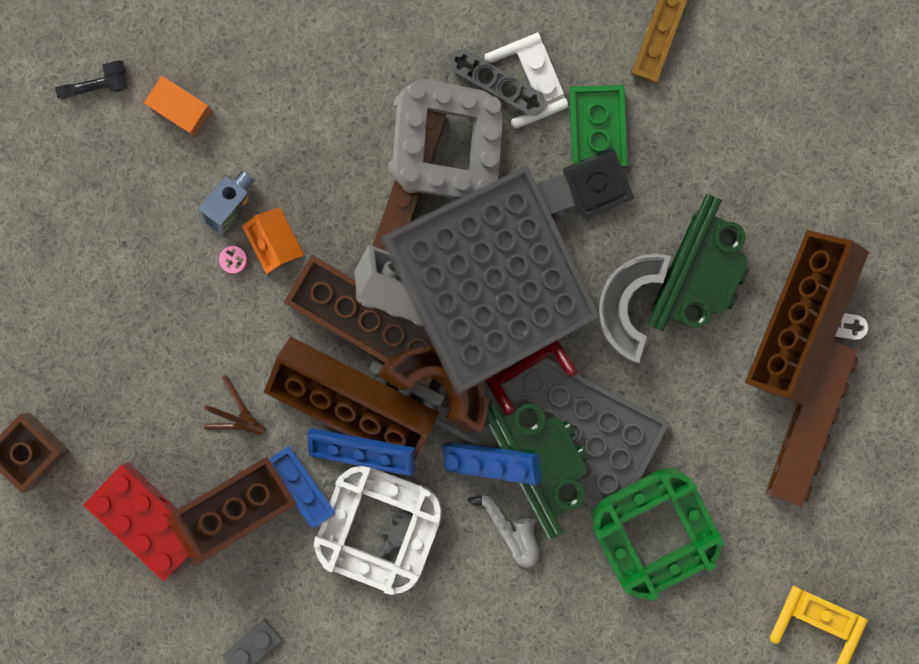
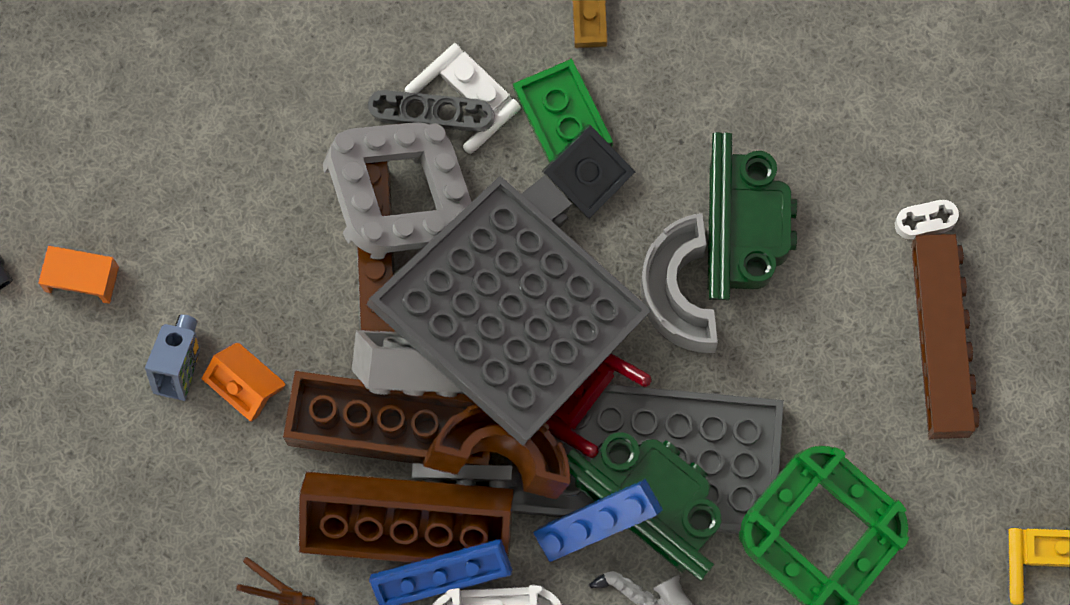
camera: 20 degrees left, 15 degrees down
(233, 259) = (206, 421): bright pink tile -> none
(807, 317) = (883, 221): reddish brown brick -> none

